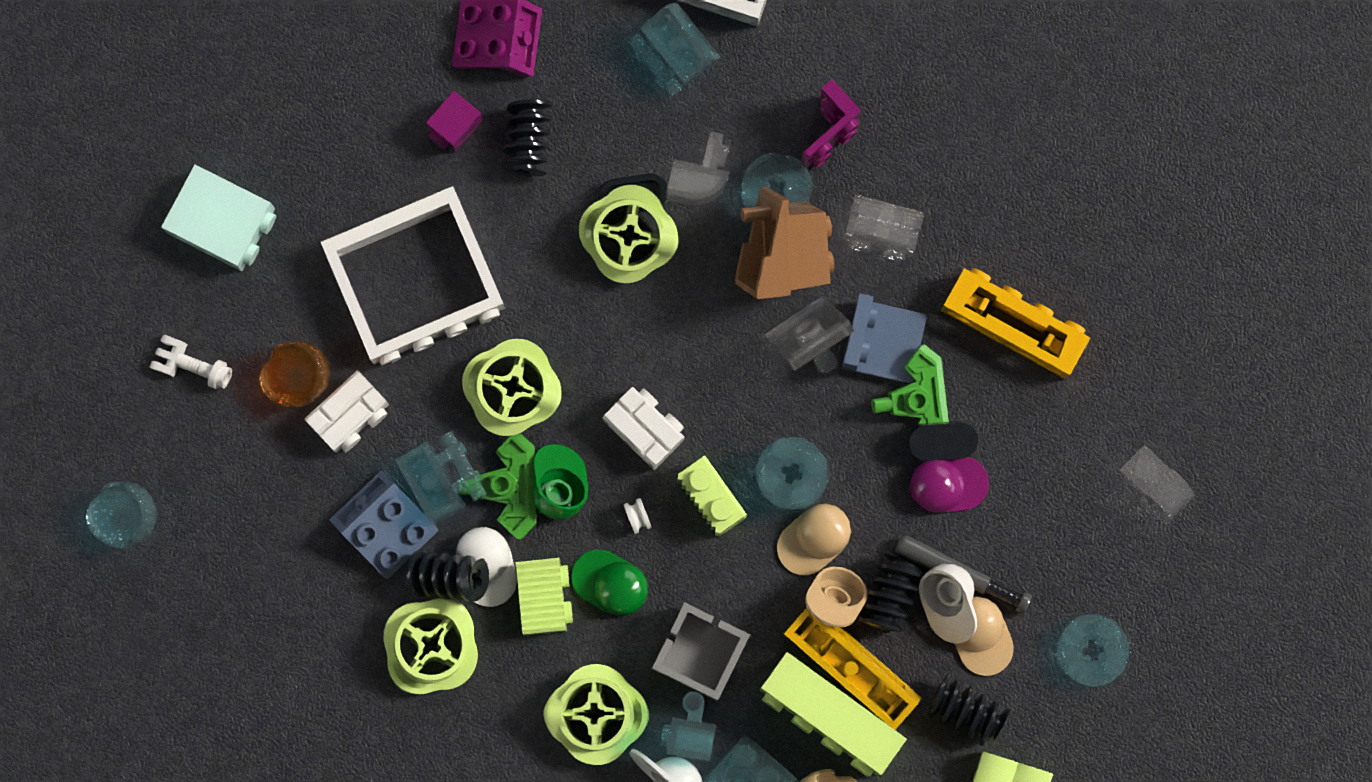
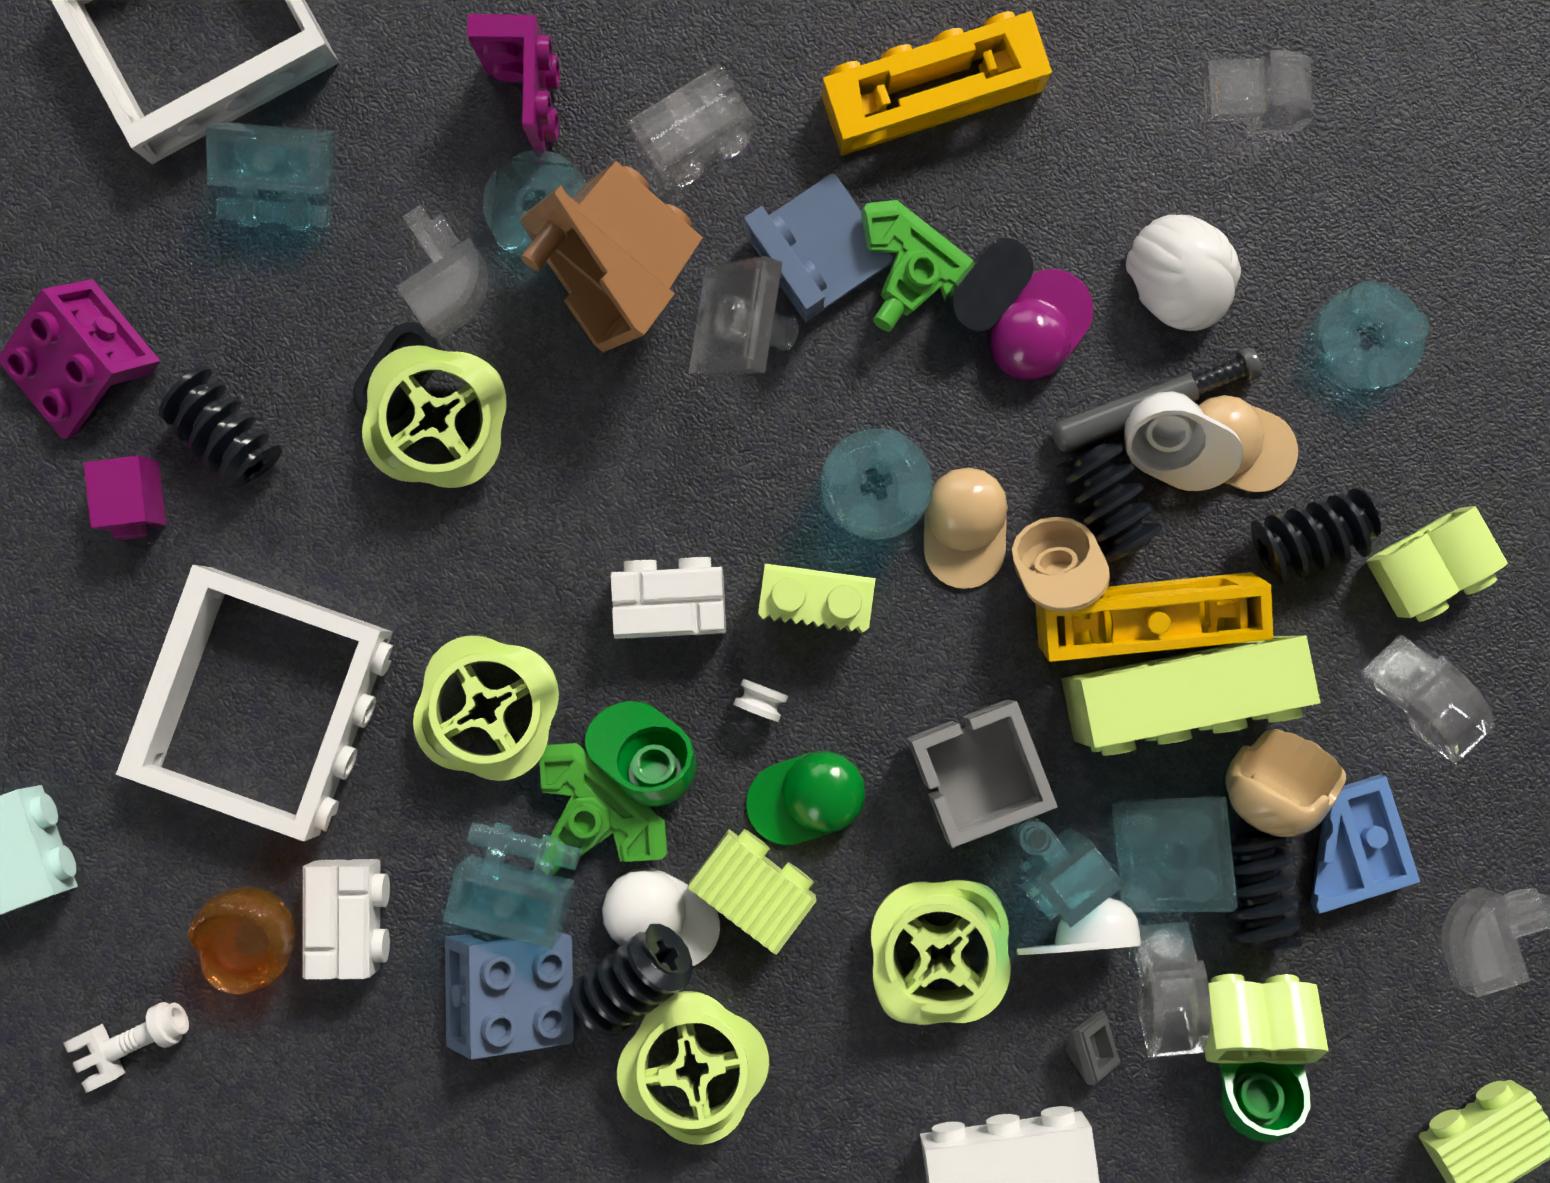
camera: 45 degrees left, 5 degrees up
(1037, 529) = (1184, 271): none -> white piece

